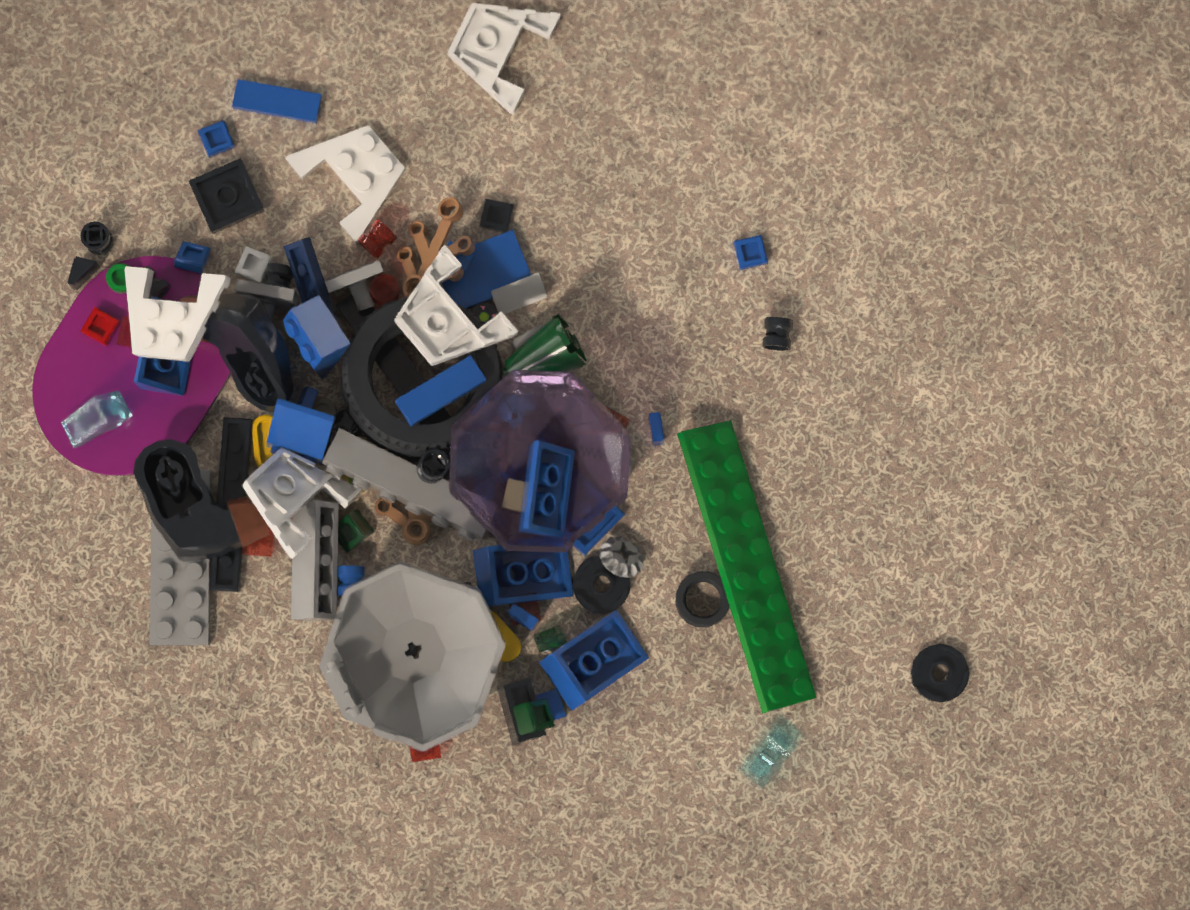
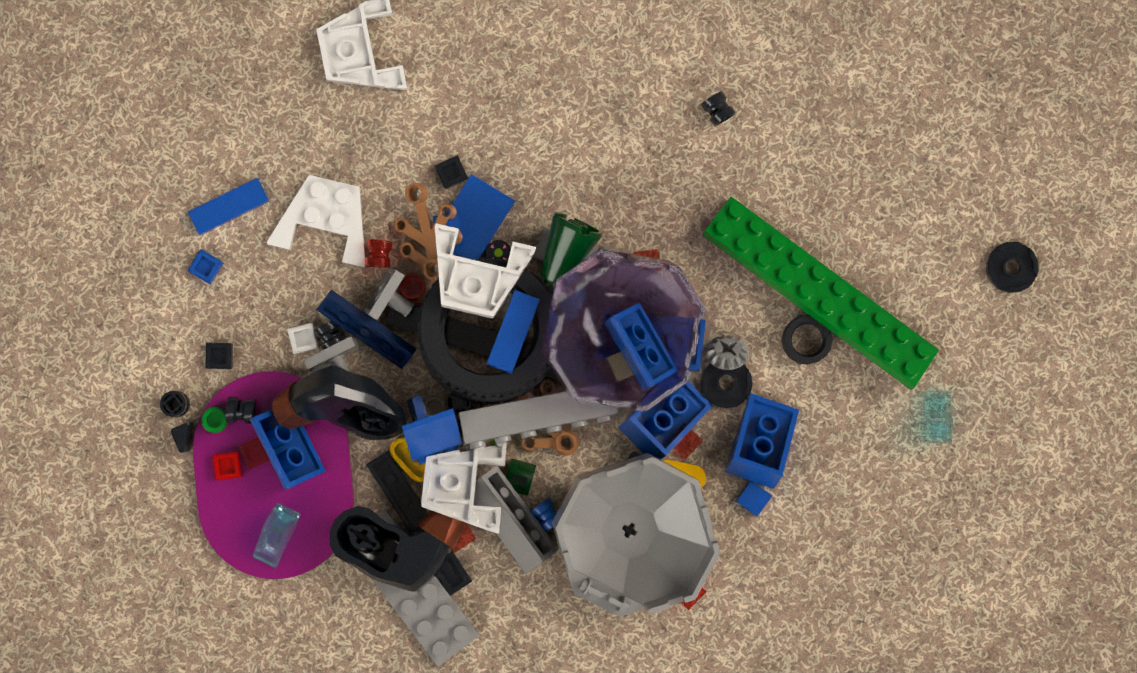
camera: 30 degrees left, 5 degrees up
(168, 225) = (219, 356): none -> black tile
(169, 327) = (279, 433): white wing -> none
(192, 257) = (254, 366): blue tile -> none
(226, 196) = (245, 303): black plate -> none
(316, 334) = (392, 357): slope -> none
(435, 461) = (547, 385): black wheel -> none
(513, 695) = (739, 516): black hinge -> none
(519, 294) = (510, 217): white sticker -> none
(523, 617) = (690, 449): blue tile -> none
(533, 716) = (752, 514): dark green slope -> none
(549, 639) = (720, 449): clear green tile -> none
(656, 428) = (682, 242): blue tile -> none
(750, 252) = (654, 63): blue tile -> none

